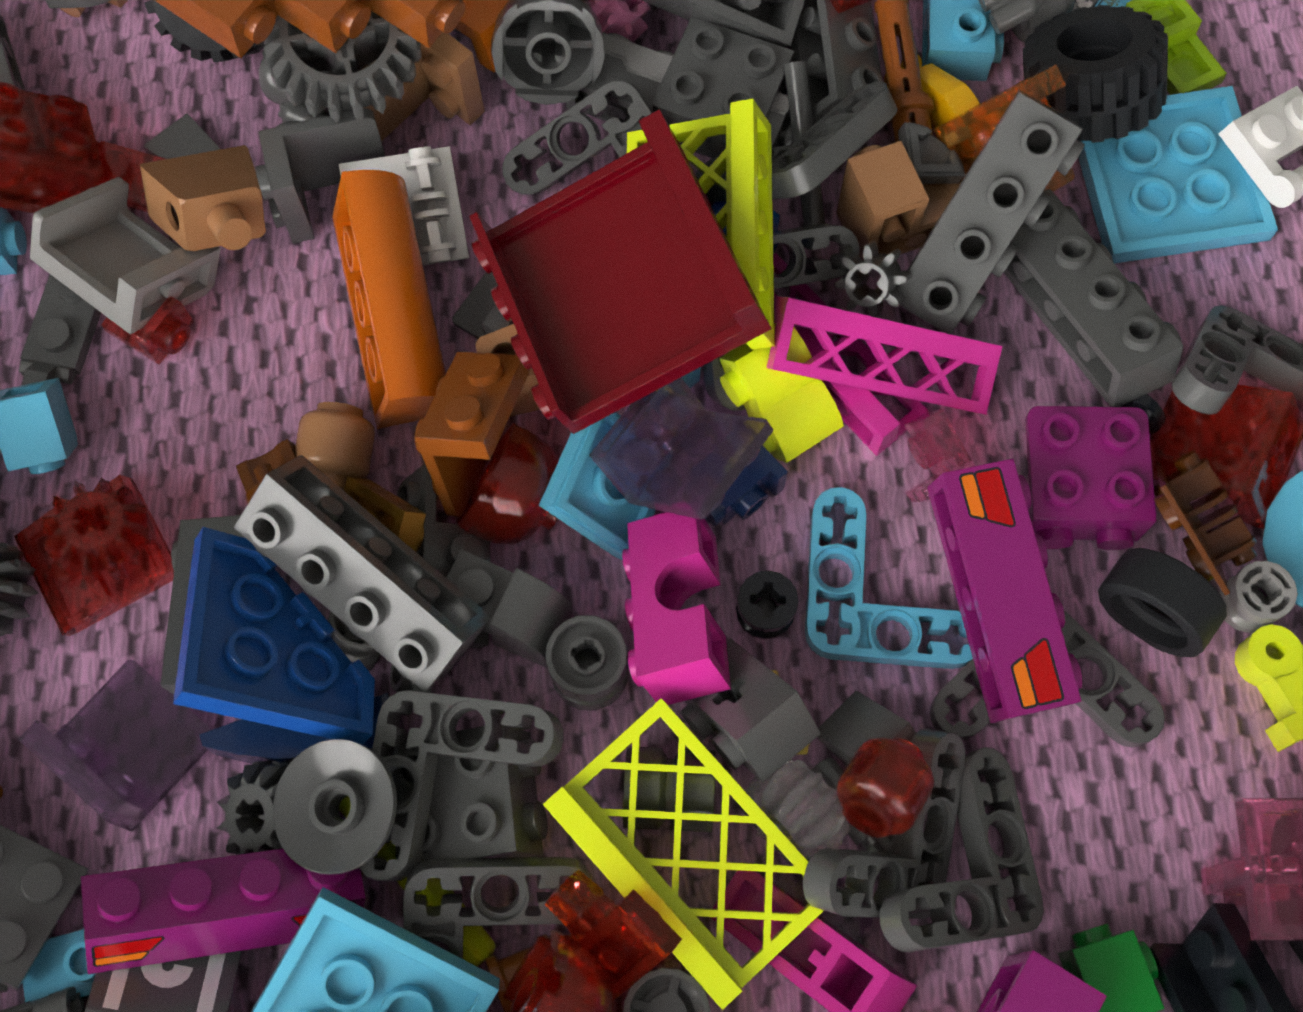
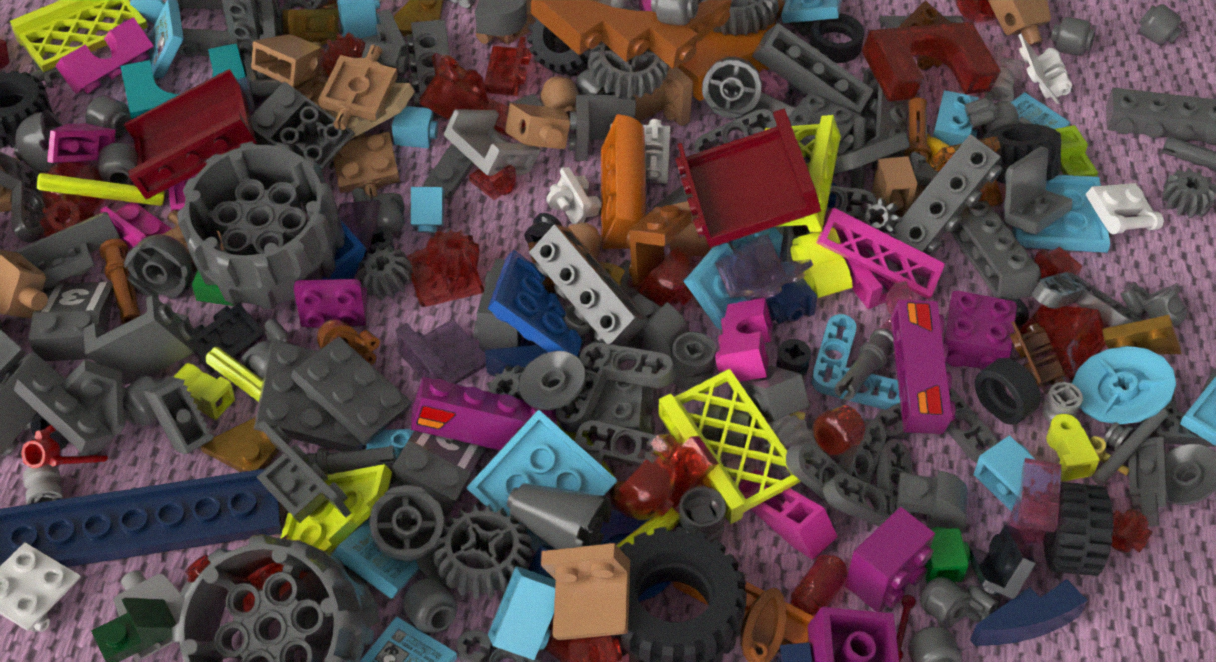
camera: 10 degrees right, 20 degrees down
(126, 71) = (507, 69): none -> clear red bracket
(235, 111) = (560, 93): none -> medium nougat head
(261, 423) = (541, 225): none -> black wheel
(294, 340) = (571, 197): none -> white hips
(906, 575) = (871, 357): none -> dark grey pin
(1072, 871) = (940, 498): none -> dark grey brick
(1134, 183) = (1027, 200): none -> dark grey bracket
(1189, 293) = (1056, 263): none -> clear red bracket
(1202, 776) = (1001, 470): none -> medium azure brick

